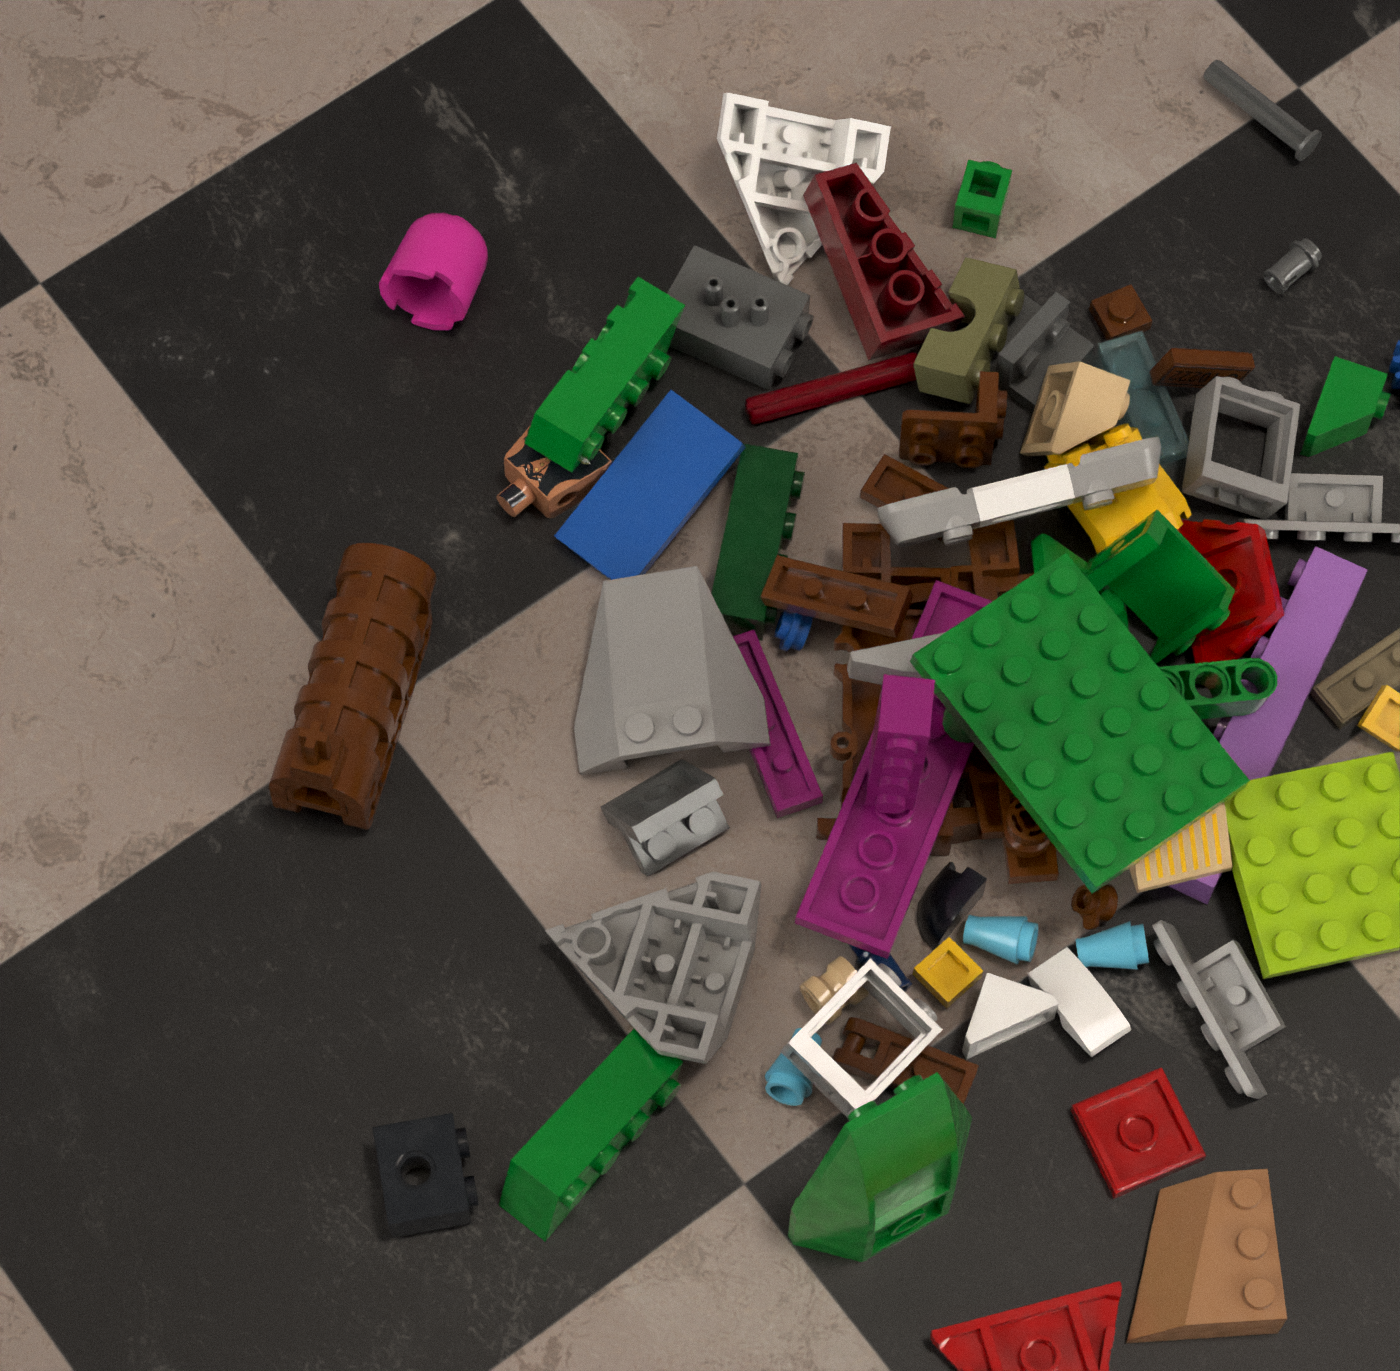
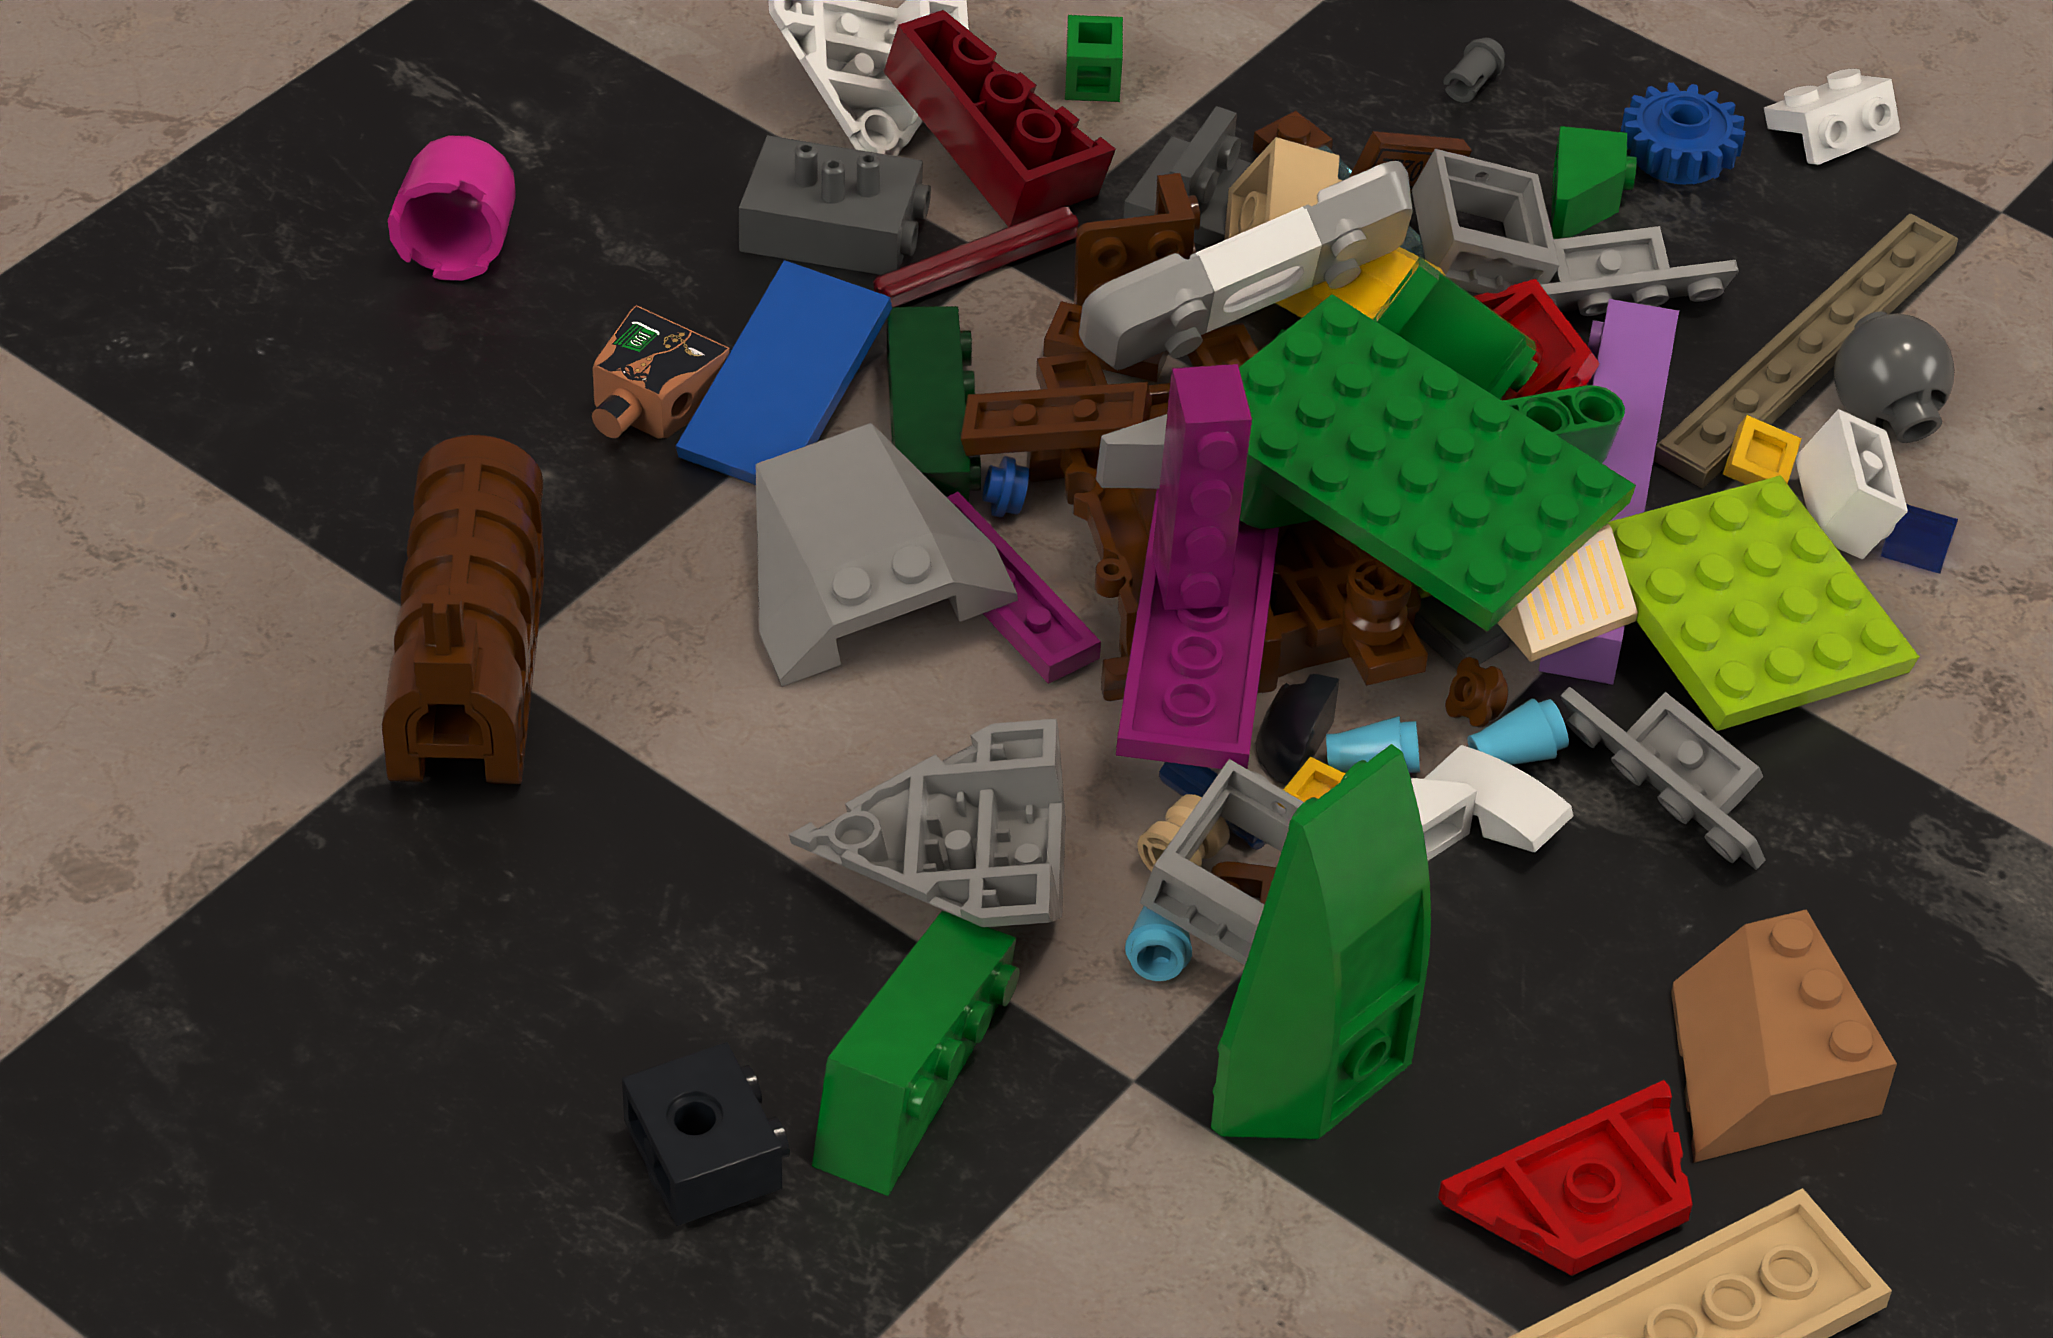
camera: 15 degrees left, 20 degrees down
(607, 377) = (702, 258): green wedge -> none
(668, 815) = (913, 695): dark grey bracket -> none
(953, 360) = (1129, 180): olive arch -> none
(1138, 1132) = (1621, 929): red tile -> none

